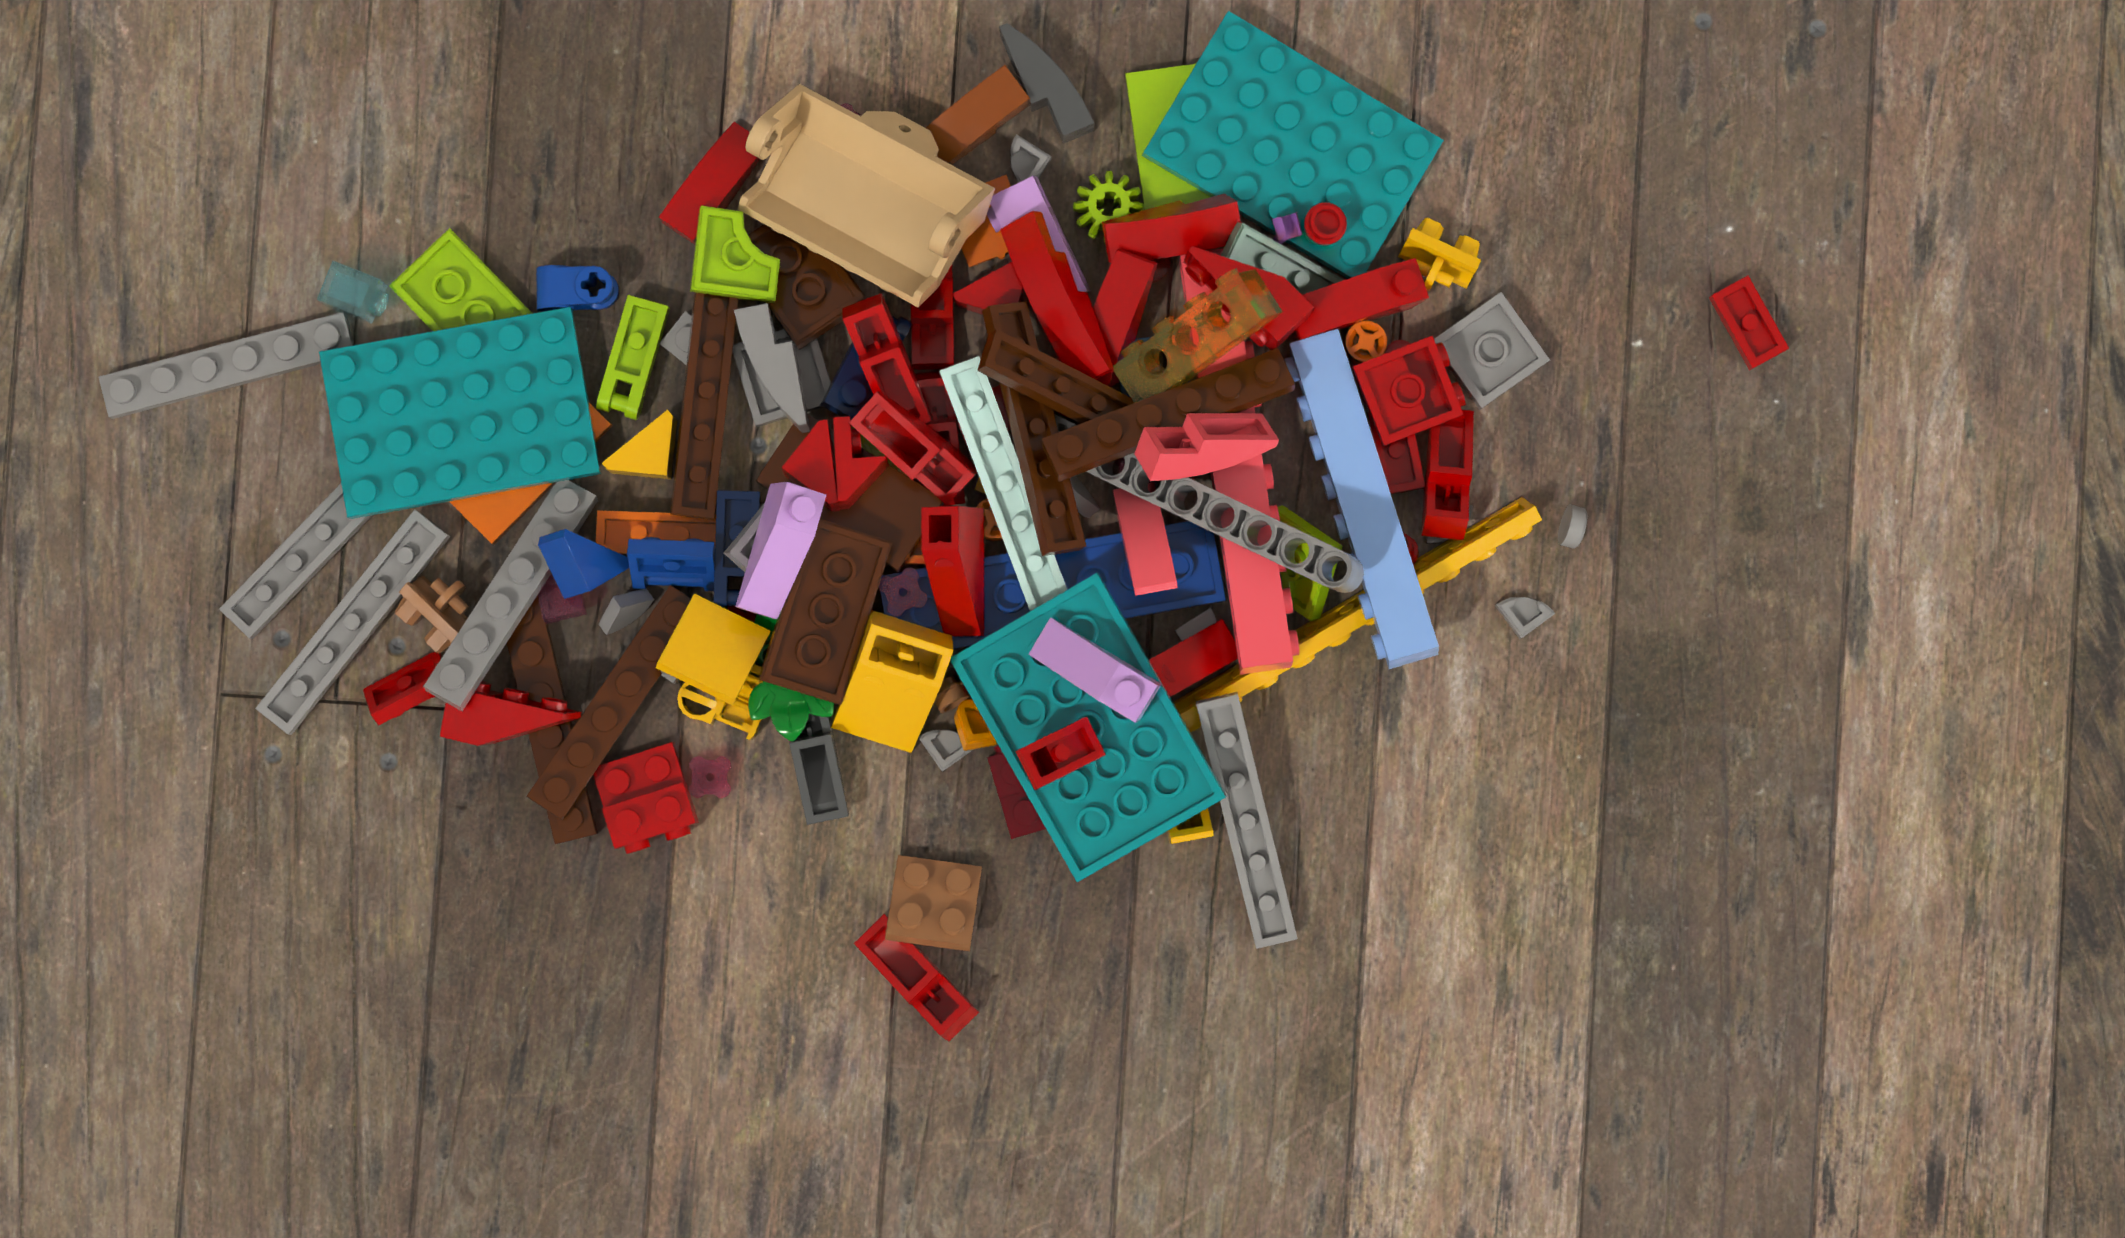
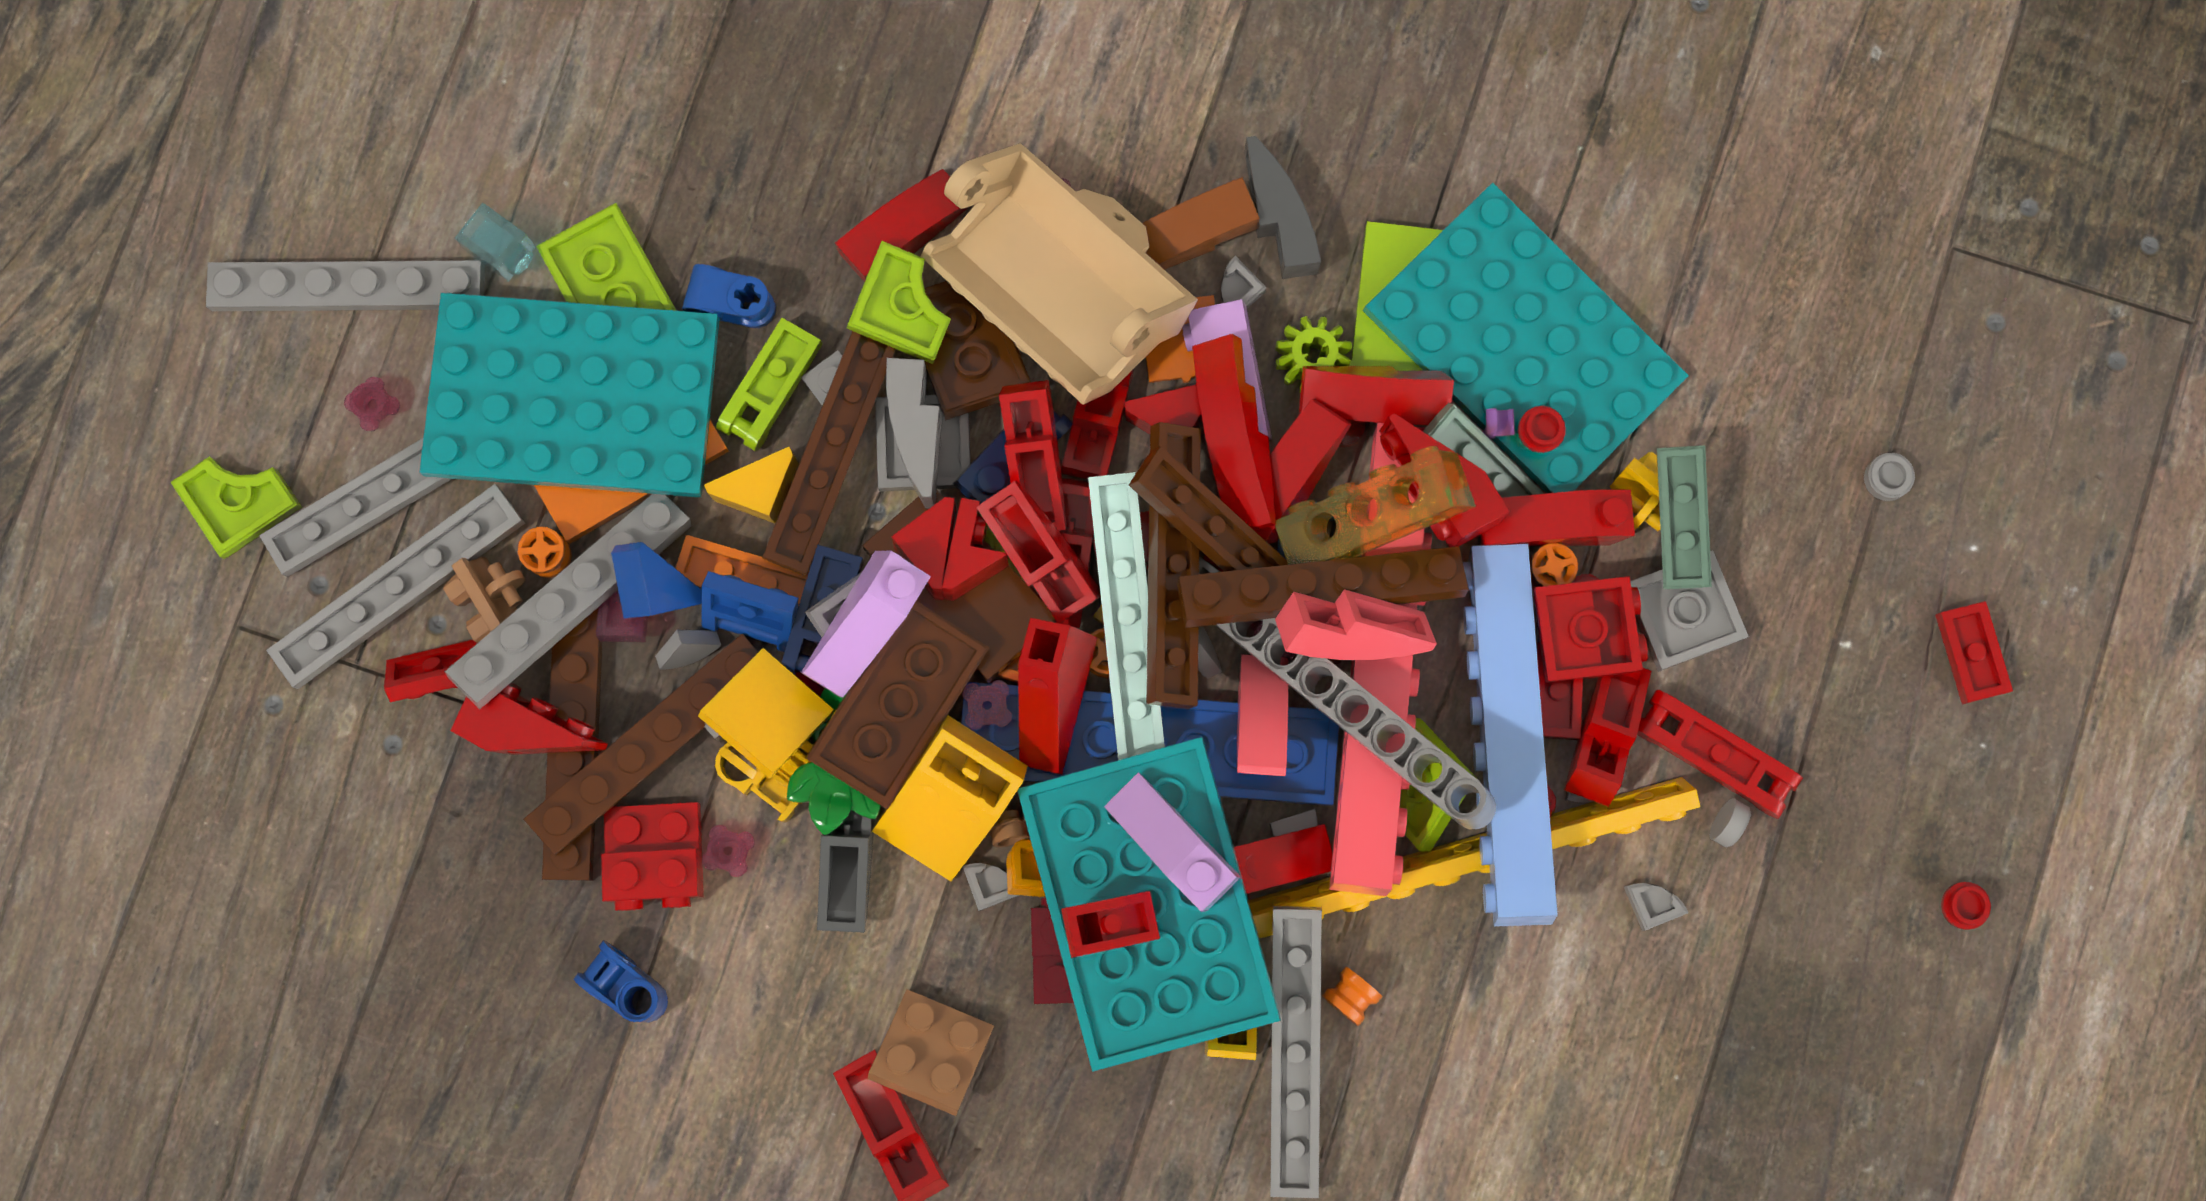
camera: 20 degrees right, 5 degrees down
(187, 588) = (234, 506): none -> lime tile
(270, 465) = (358, 401): none -> clear pink plate
(465, 553) = (538, 545): none -> orange wheel
(643, 914) = (616, 978): none -> blue piece
(1283, 760) = (1352, 996): none -> orange wheel
(1467, 270) = (1684, 517): none -> sand green tile
(1548, 468) = (1718, 753): none -> red plate
(1640, 184) = (1889, 476): none -> light grey tile
(1791, 545) = (1966, 905): none -> red plate

